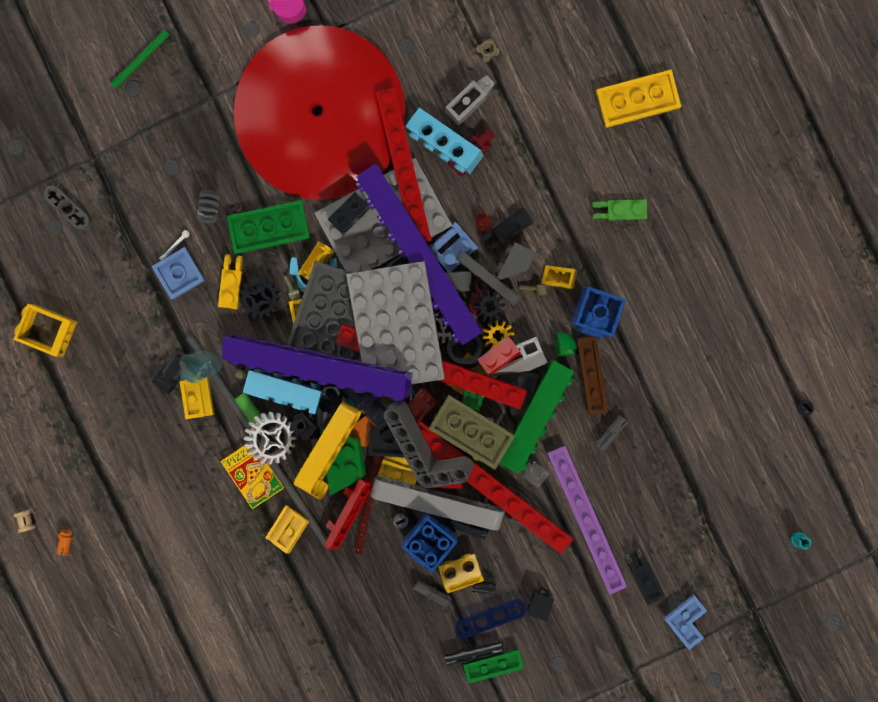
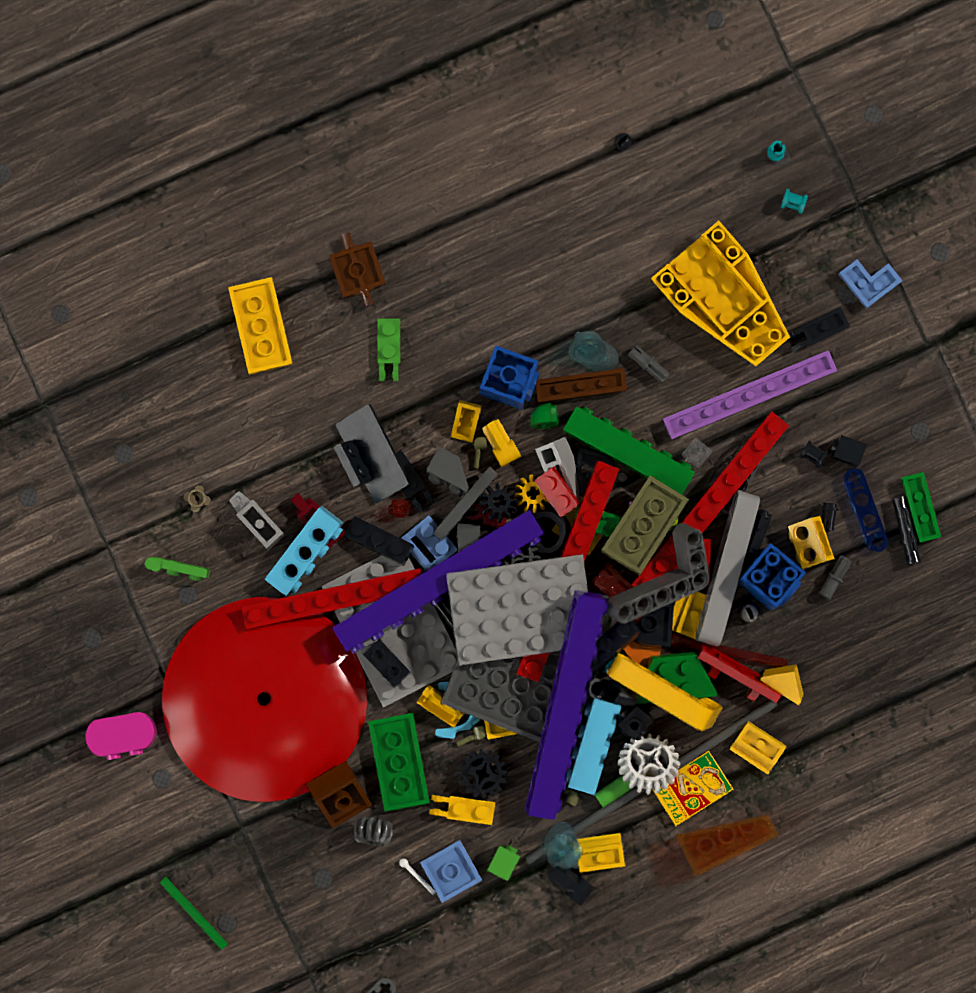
camera: 85 degrees left, 5 degrees down
(186, 317) = (504, 861): none -> bright green brick
(205, 502) = (720, 844): none -> clear orange wedge
(240, 177) = (339, 794): none -> reddish brown slope
(343, 551) = (785, 681): none -> yellow slope
(428, 34) = (176, 567): none -> bright green hinge
(454, 205) = (379, 541): none -> black plate
(528, 194) = (369, 455): none -> bracket
(536, 574) = (813, 454): none -> black bush
(537, 309) = (503, 448): none -> yellow piece
(621, 385) = (593, 352): none -> clear light blue piece
(673, 497) = (724, 295): none -> yellow wedge
(688, 180) = (357, 270): none -> reddish brown plate
(756, 556) = (794, 201): none -> teal bush

